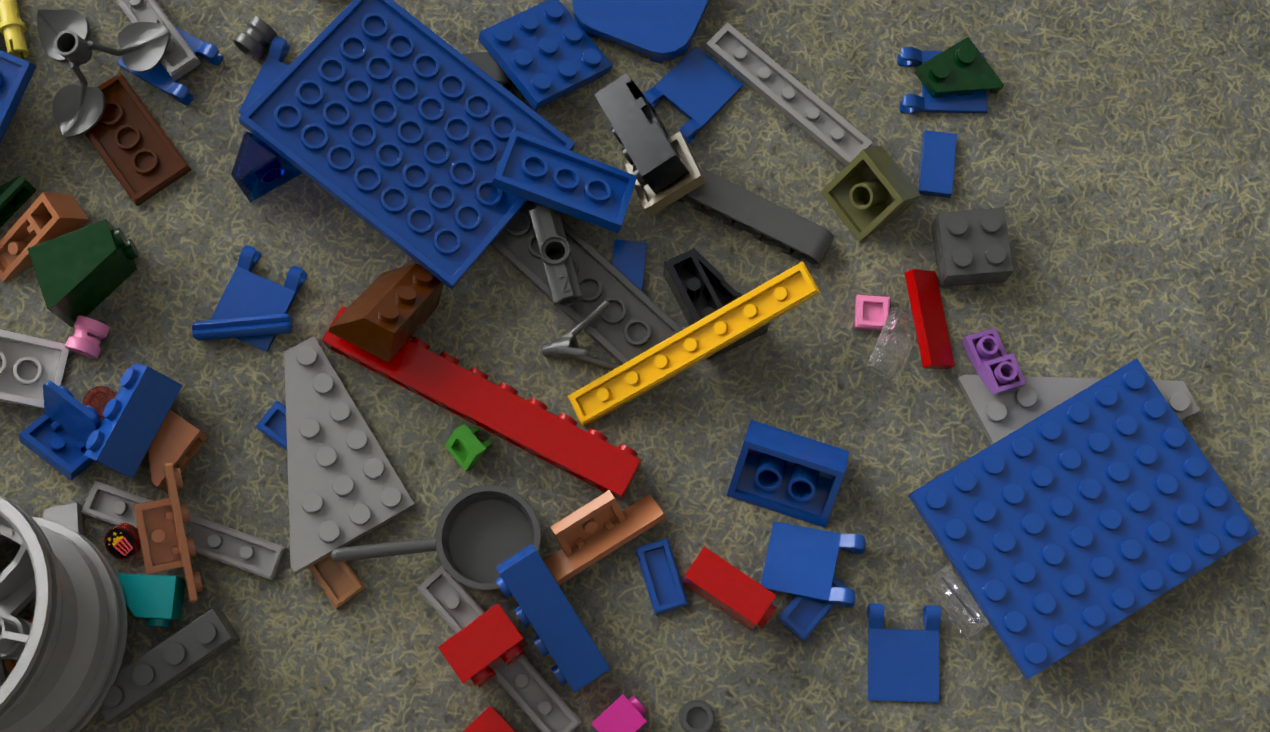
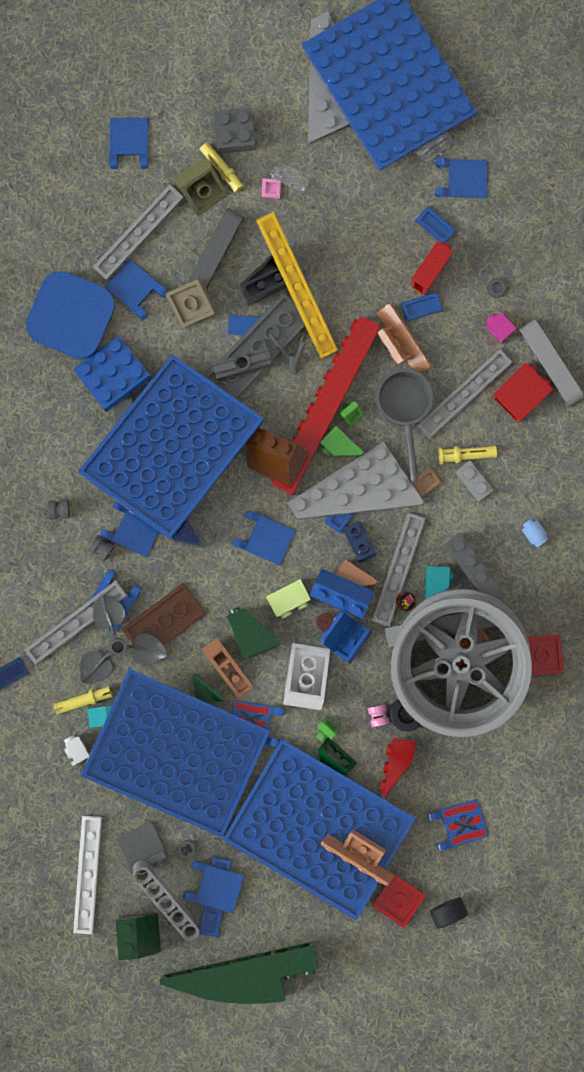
camera: 90 degrees left, 10 degrees up
(87, 337) = (288, 631): bright pink wheel -> none
(143, 335) = (289, 598): none -> yellowish green brick
(163, 534) = (403, 573): nougat bracket -> none
(233, 459) = (359, 542): none -> dark blue plate
(242, 327) = (282, 543): blue axle -> none
(335, 670) = (474, 481): none -> light grey plate
(385, 701) = (457, 454): none -> light yellow pin
(409, 426) = (339, 445): none -> bright green slope
(484, 647) = (464, 395): red brick -> none
(552, 618) = (448, 361): blue brick -> none
(564, 181) = (200, 357): blue plate -> none
(642, 134) = (171, 313): black wedge -> none
(788, 473) = (365, 236): blue slope -> none
(805, 561) = (414, 229): blue flag -> none
(895, 237) = (227, 174): none -> light yellow pin
(929, 319) = (276, 156): red tile -> none
(937, 163) = (180, 148): blue tile -> none
(958, 72) = (124, 133): dark green wing -> none
(990, 360) = (302, 122): medium lavender slope -> none

